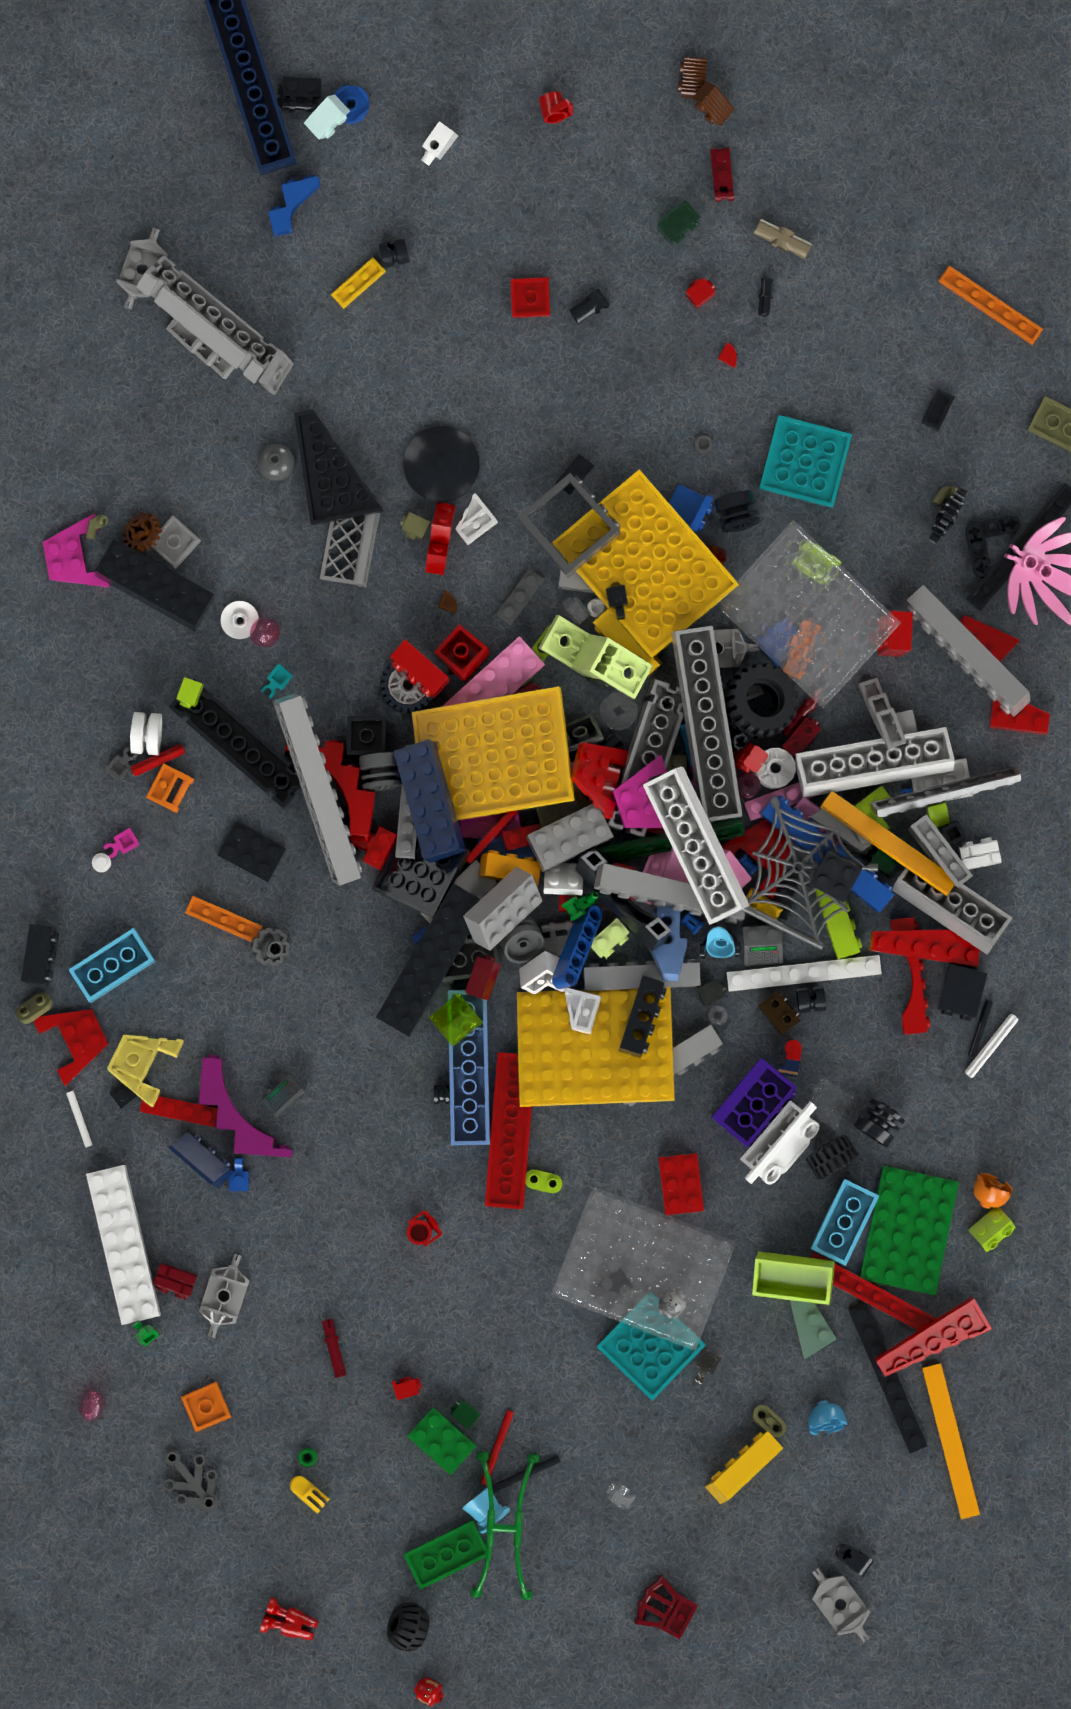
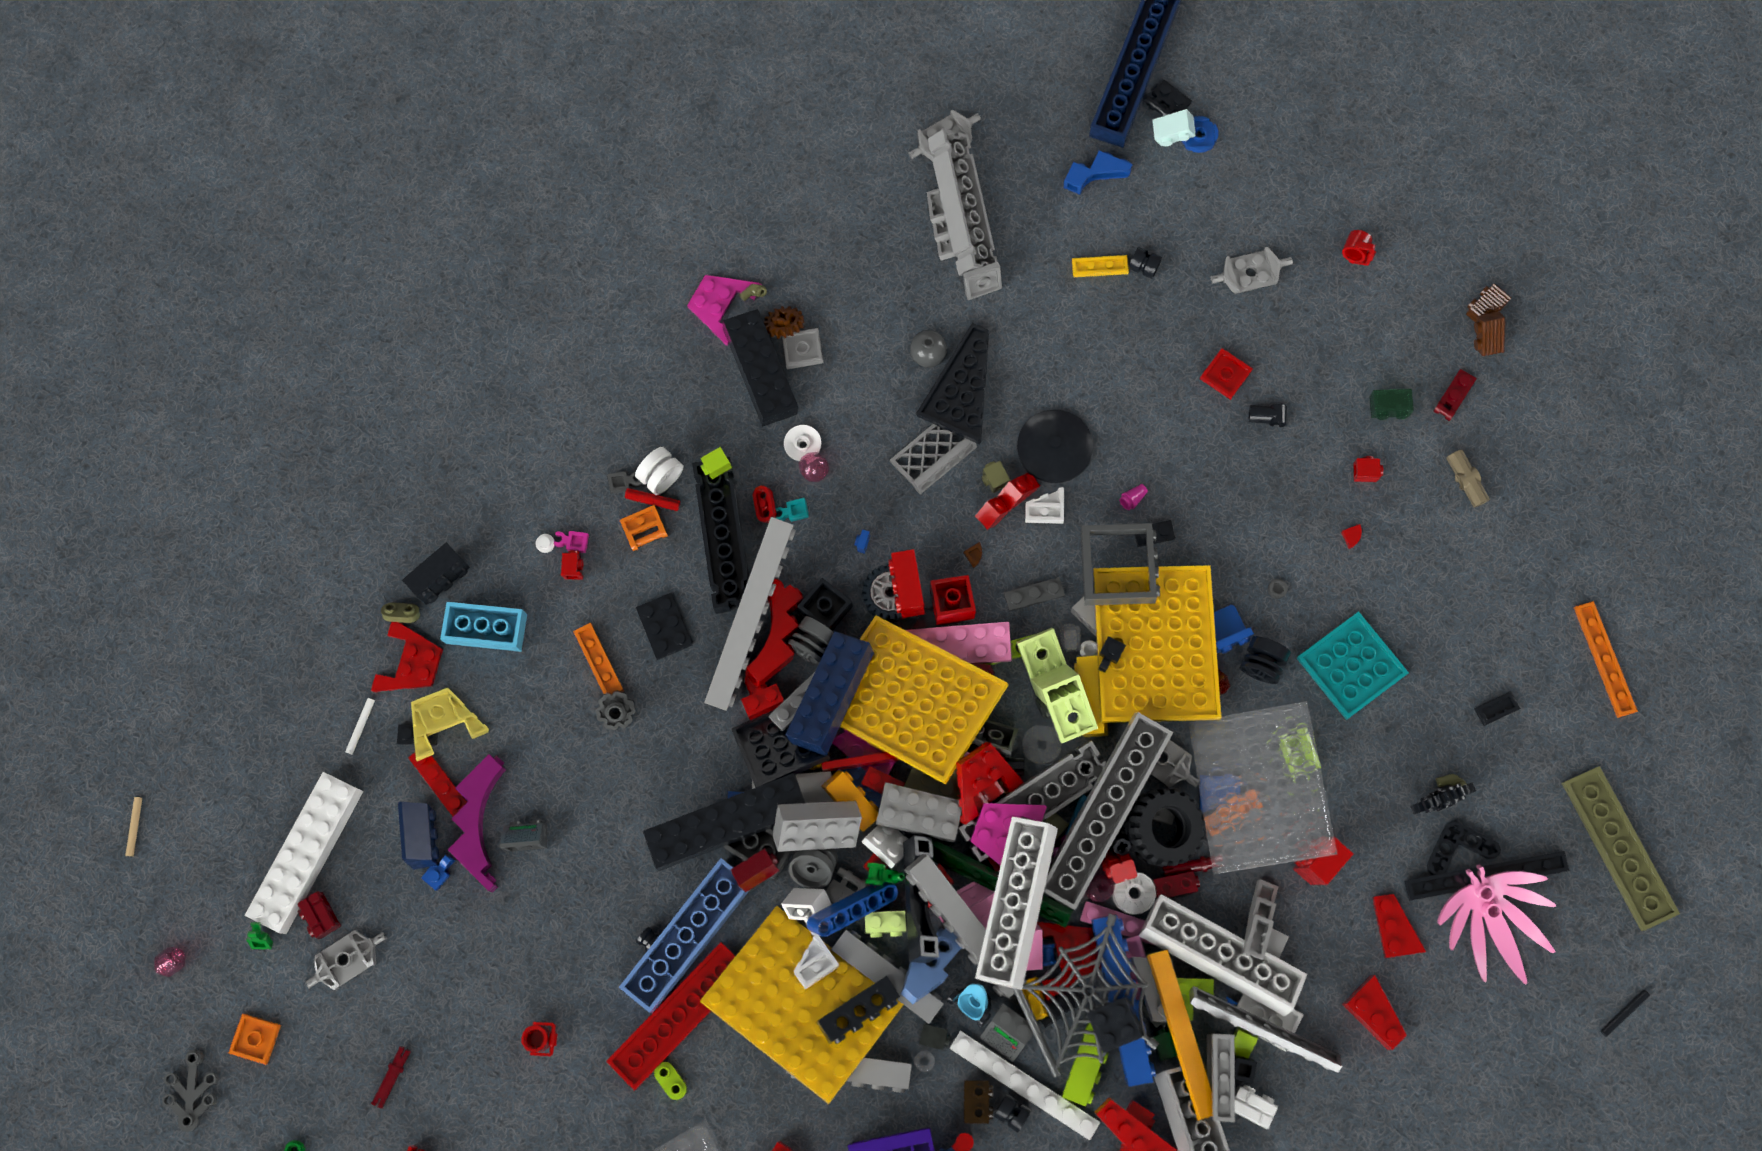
camera: 45 degrees right, 10 degrees down
(138, 862) = (572, 565): none -> red brick
(250, 694) = (764, 505): none -> red plate
(352, 661) = (862, 541): none -> blue plate
(442, 135) = (1246, 207): white torso -> none
(455, 1020) = (706, 887): clear neon green slope -> none
(486, 178) = (1265, 265): none -> light grey plate
(535, 459) = (1131, 498): none -> dark pink cone
(689, 925) = (964, 970): blue bush -> none
(765, 297) = (1418, 512): black axle -> none
(968, 651) = (1376, 927): light grey brick -> none

